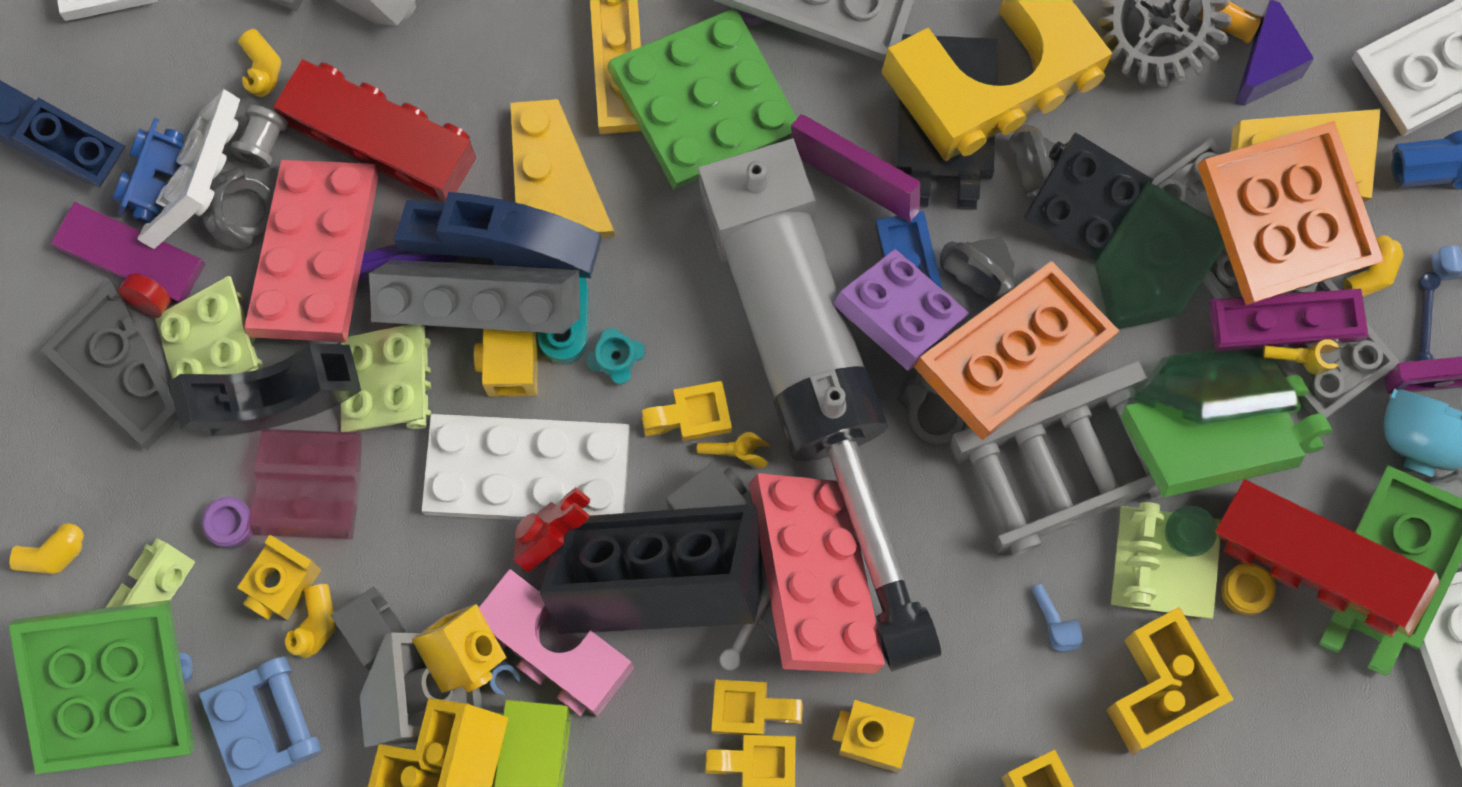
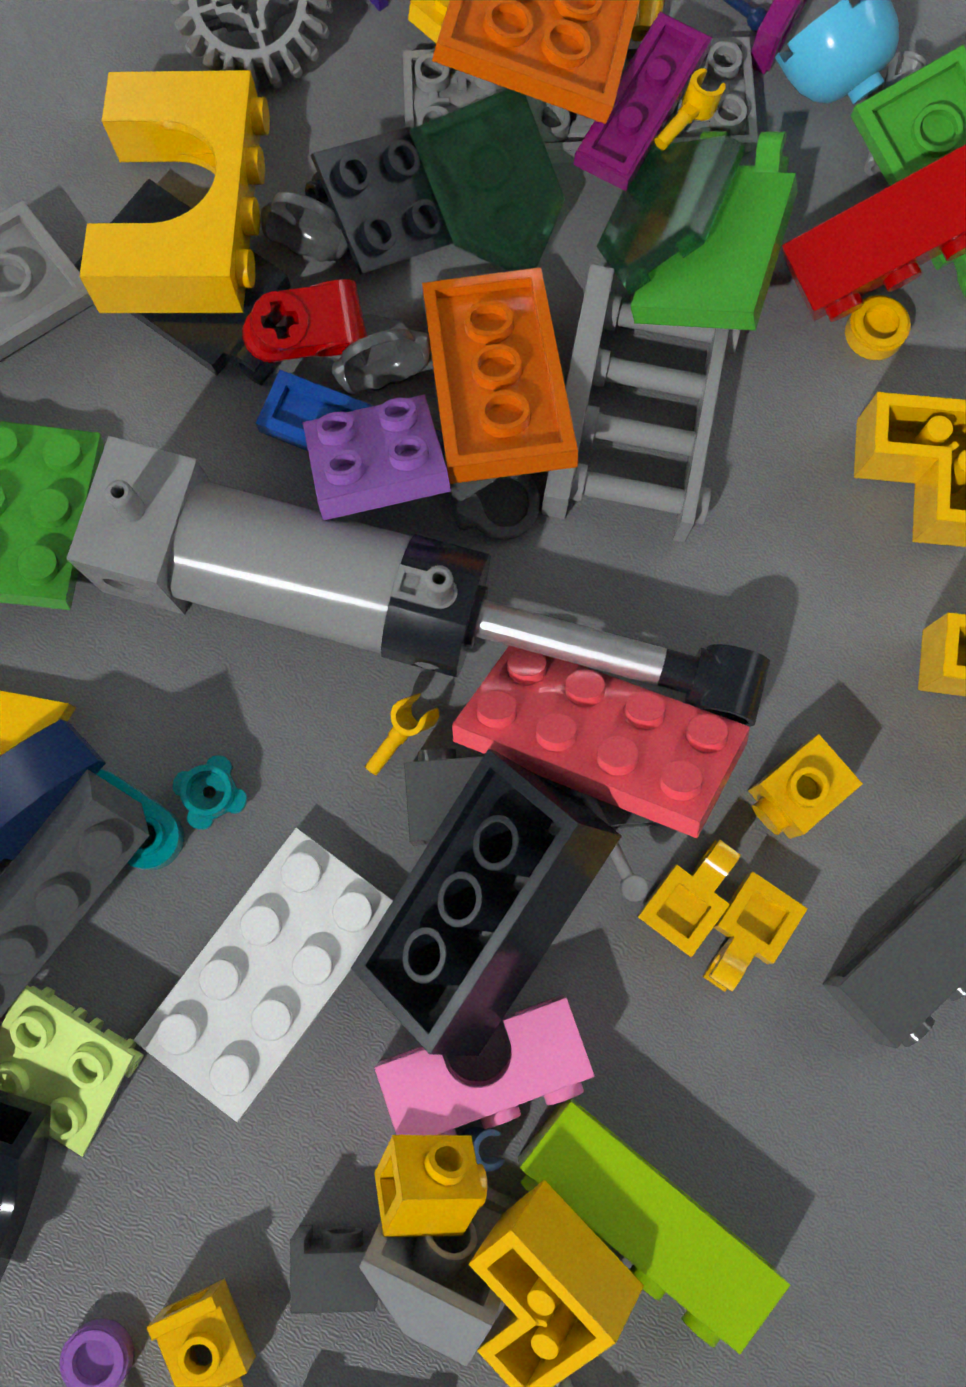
camera: 60 degrees left, 5 degrees up
(307, 484) = (114, 1236): clear pink slope -> none
(317, 627) = (289, 1333): yellow arm -> none
(508, 363) = (135, 917): yellow brick -> none
(544, 532) = (356, 1001): red plate -> none
(697, 411) = (332, 747): yellow plate -> none
(856, 168) = (188, 400): magenta tile -> none
(971, 211) = (317, 321): none -> red piece
(1062, 635) = (810, 534): medium blue hand -> none
(1155, 576) = (801, 384): yellowish green hinge -> none
(1190, 531) = (792, 337): clear green plate -> none

